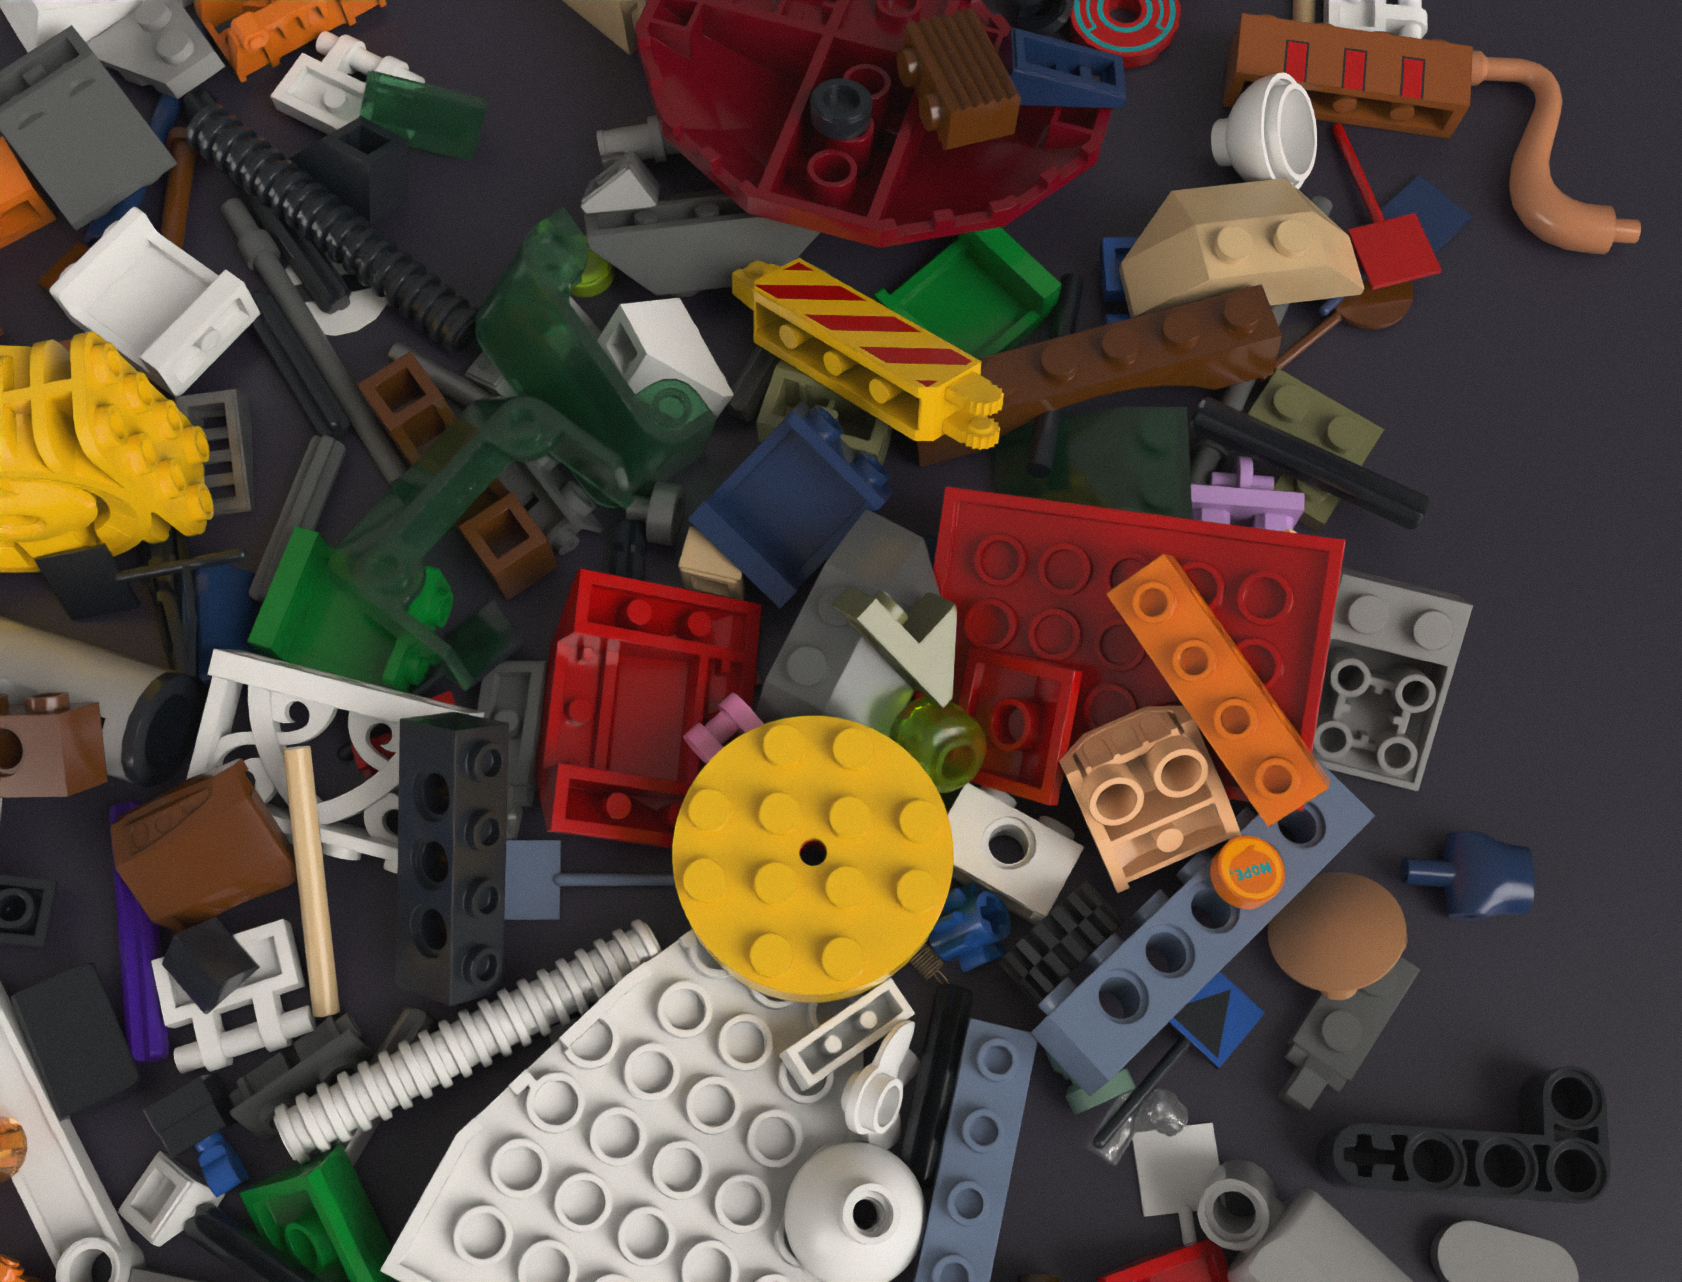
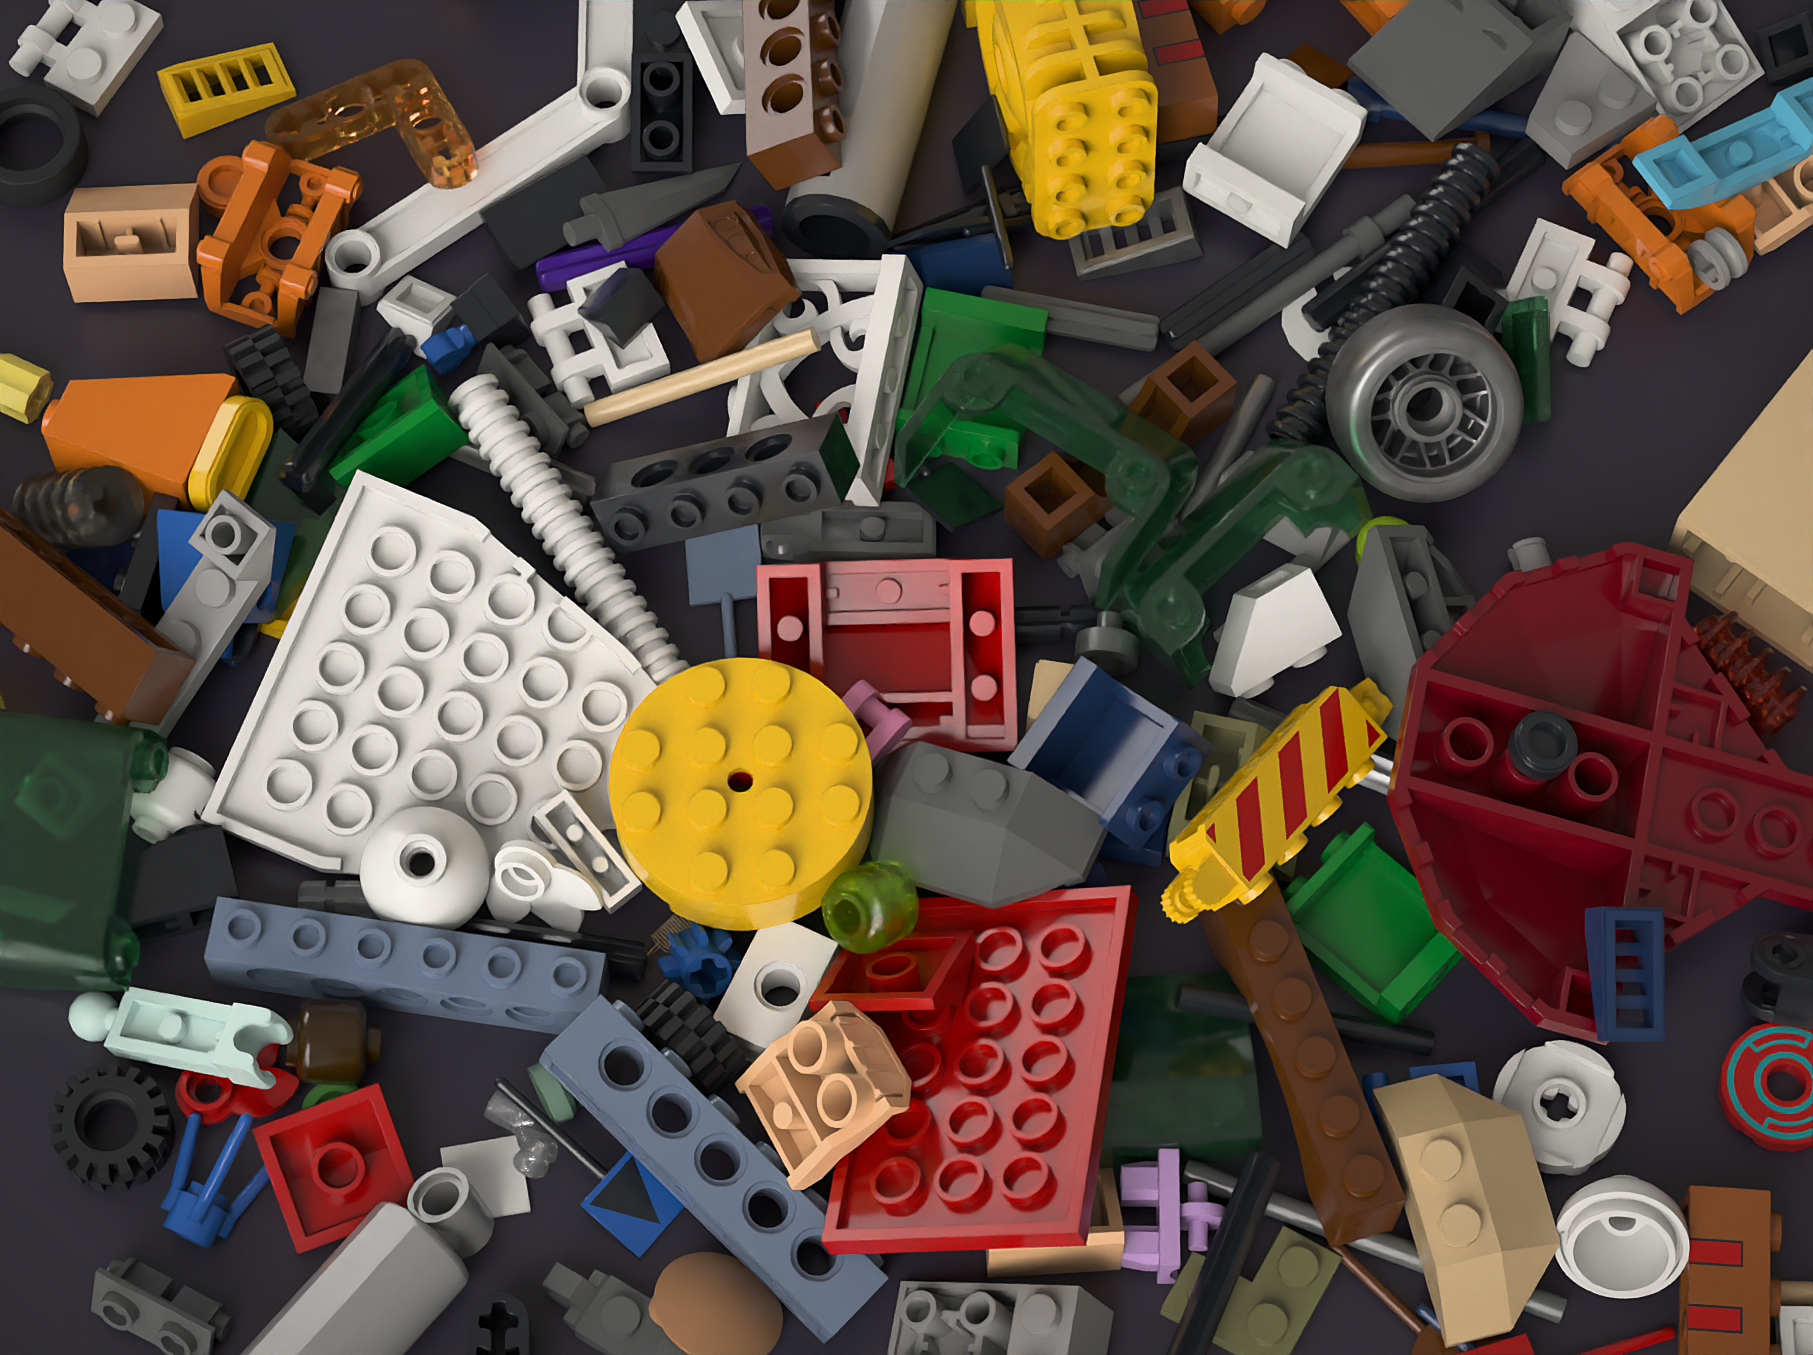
camera: 85 degrees right, 5 degrees down
(93, 944) = (635, 210): none -> dark grey bar
(455, 187) = (1451, 439): none -> flat silver wheel
(622, 187) = (1455, 562): light grey slope -> none
(914, 643) = (948, 852): slope -> none
(958, 80) = (1589, 857): reddish brown brick -> none
(1145, 151) = (1592, 1093): none -> white plate
(1219, 689) = (925, 1132): orange brick -> none
(1247, 872) = (755, 1187): orange tile -> none

